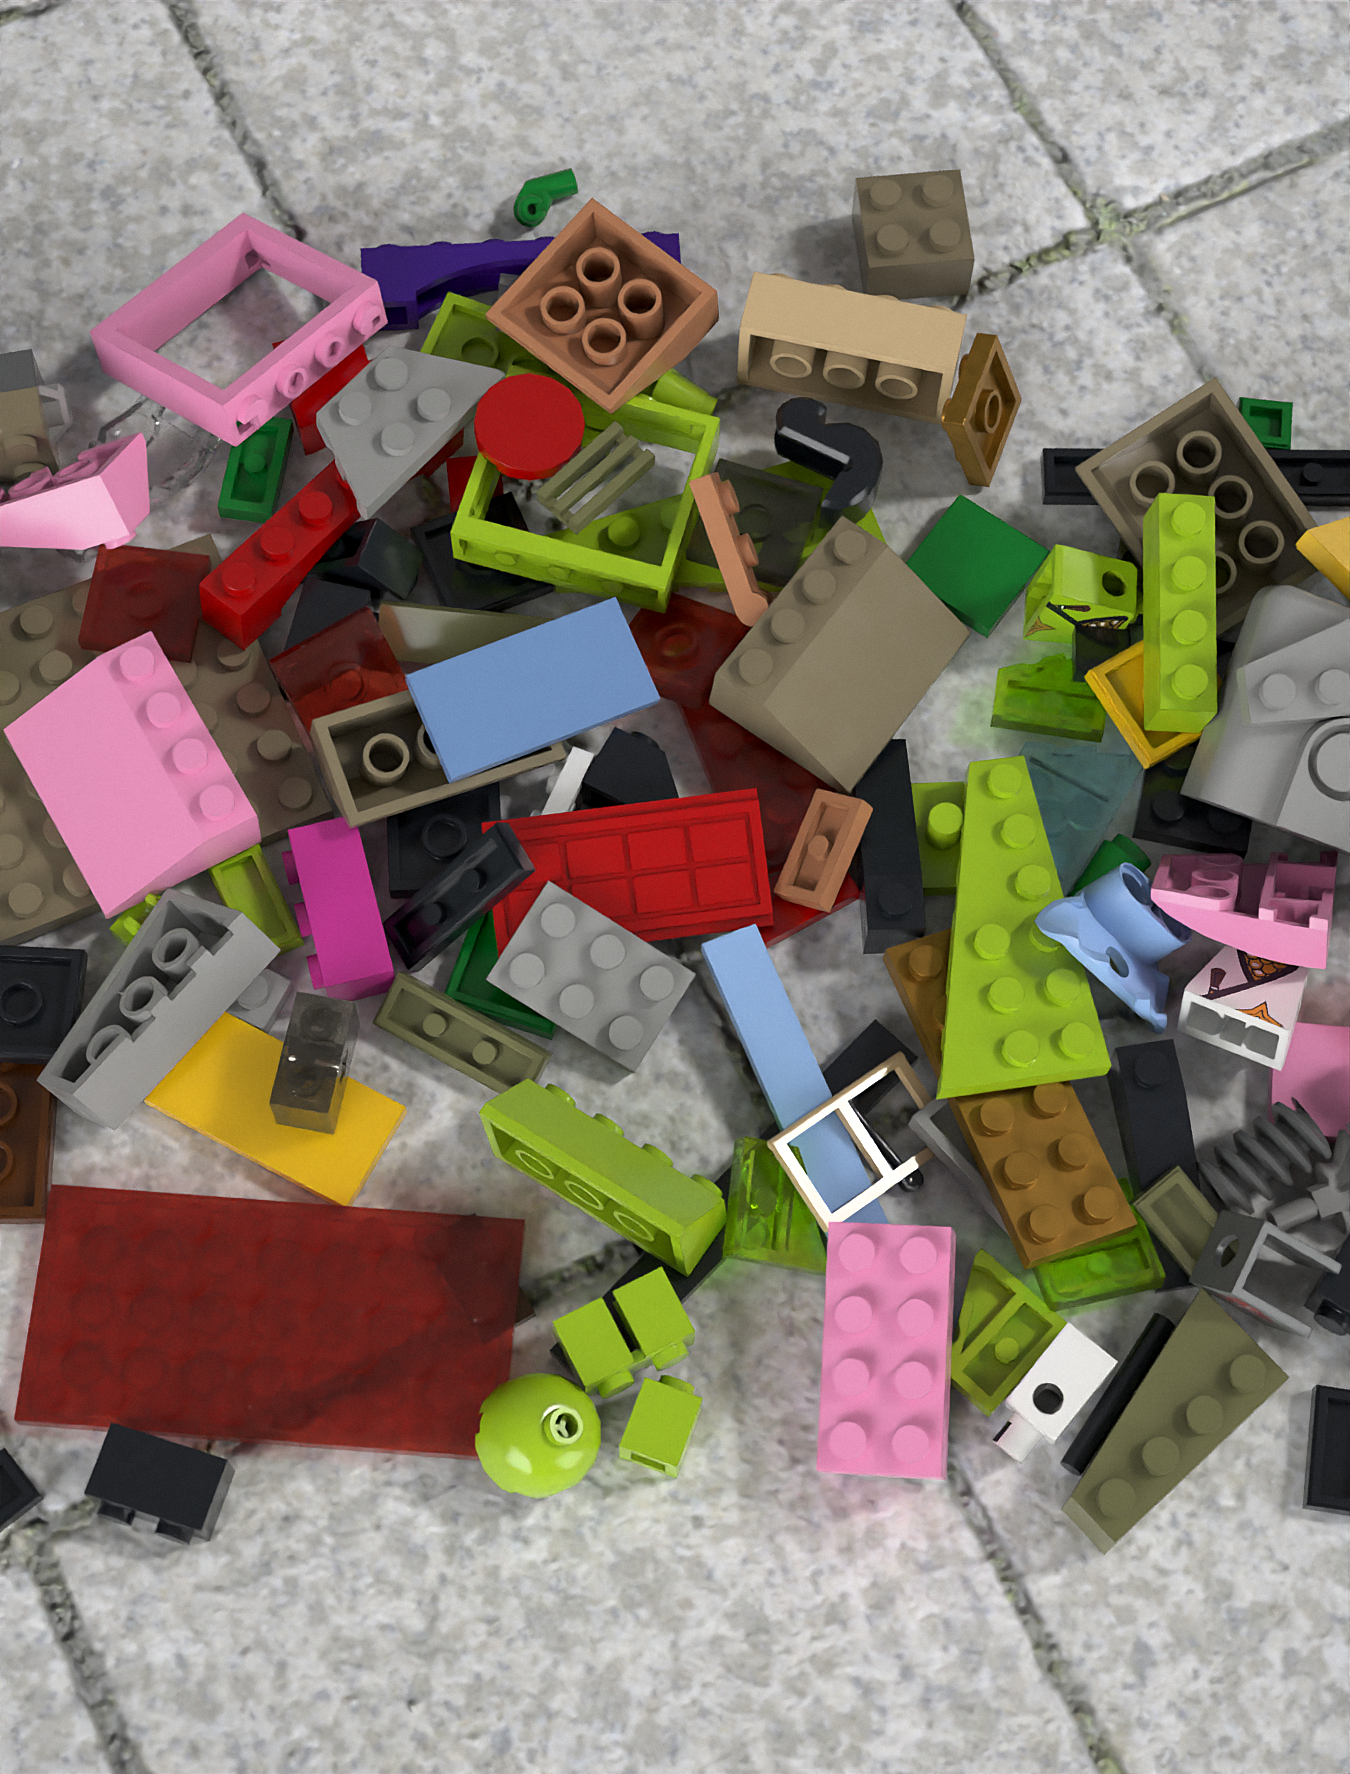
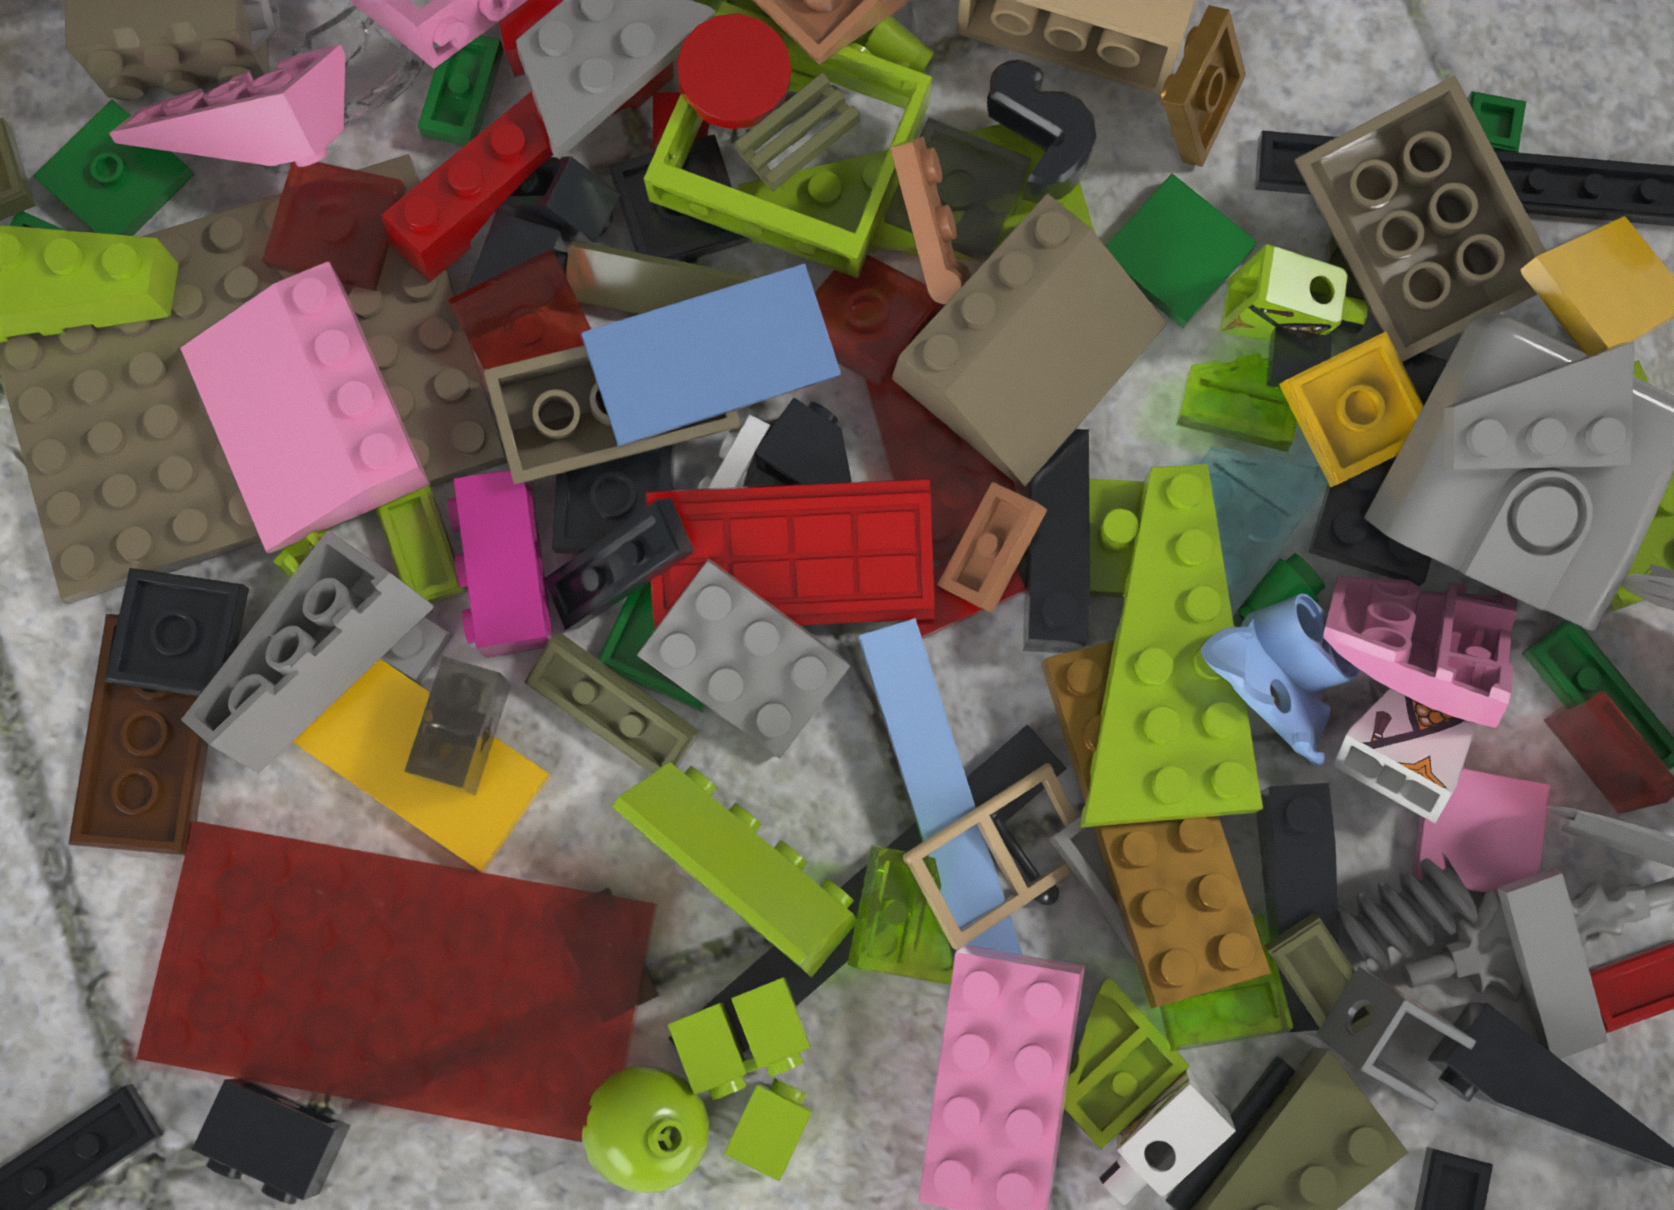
camera: 10 degrees right, 10 degrees up
(1179, 613) = (1388, 329): lime brick -> none

